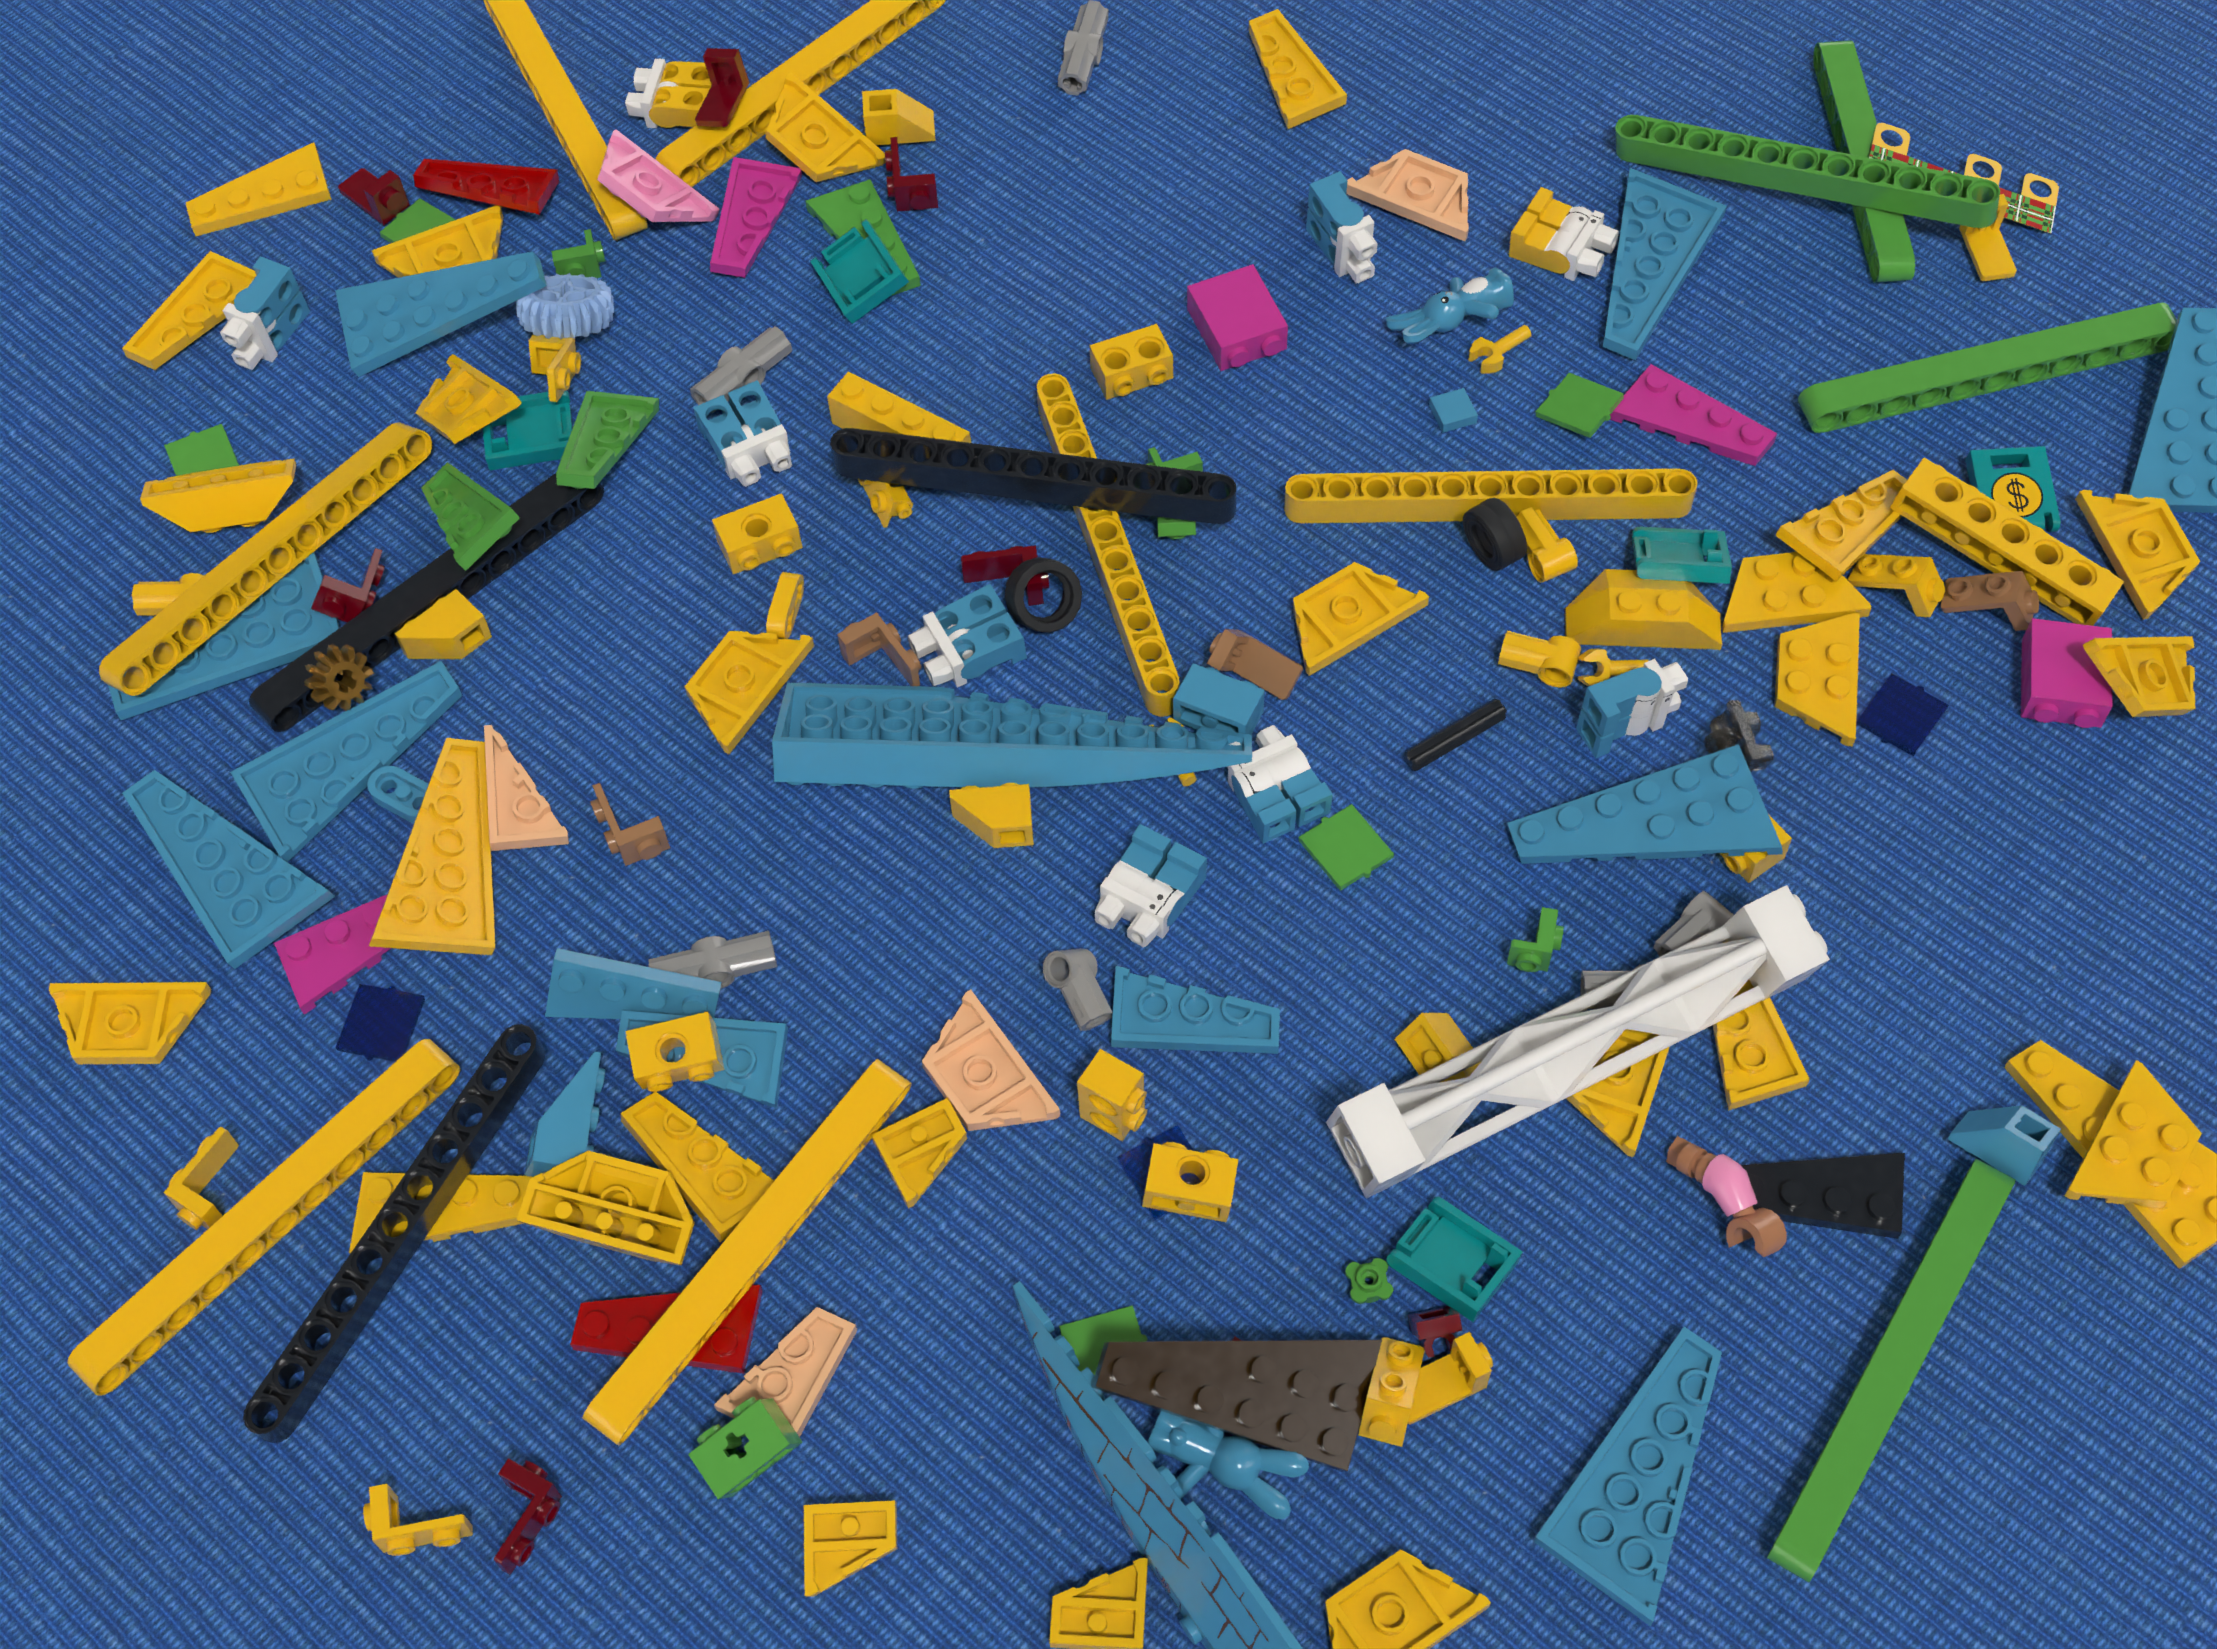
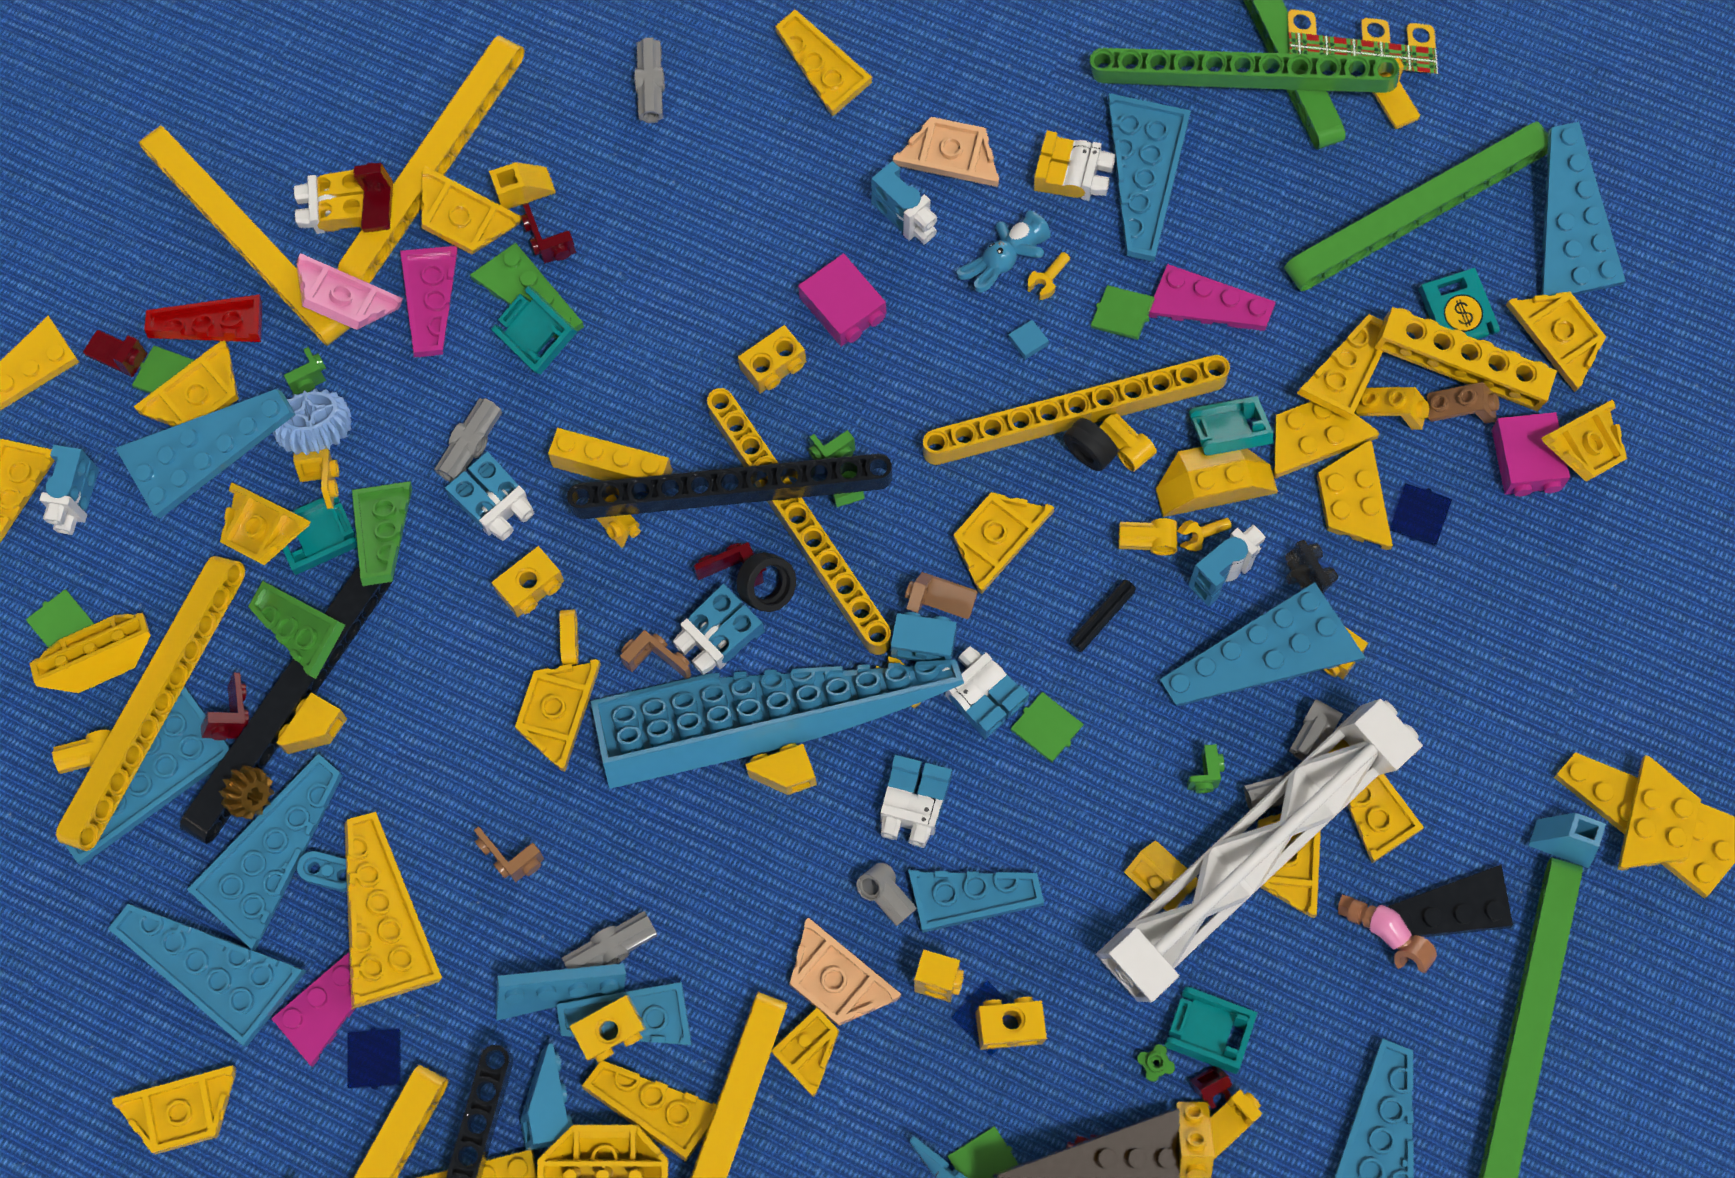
camera: 15 degrees left, 10 degrees up
(515, 808) = (419, 861): light nougat wing -> none

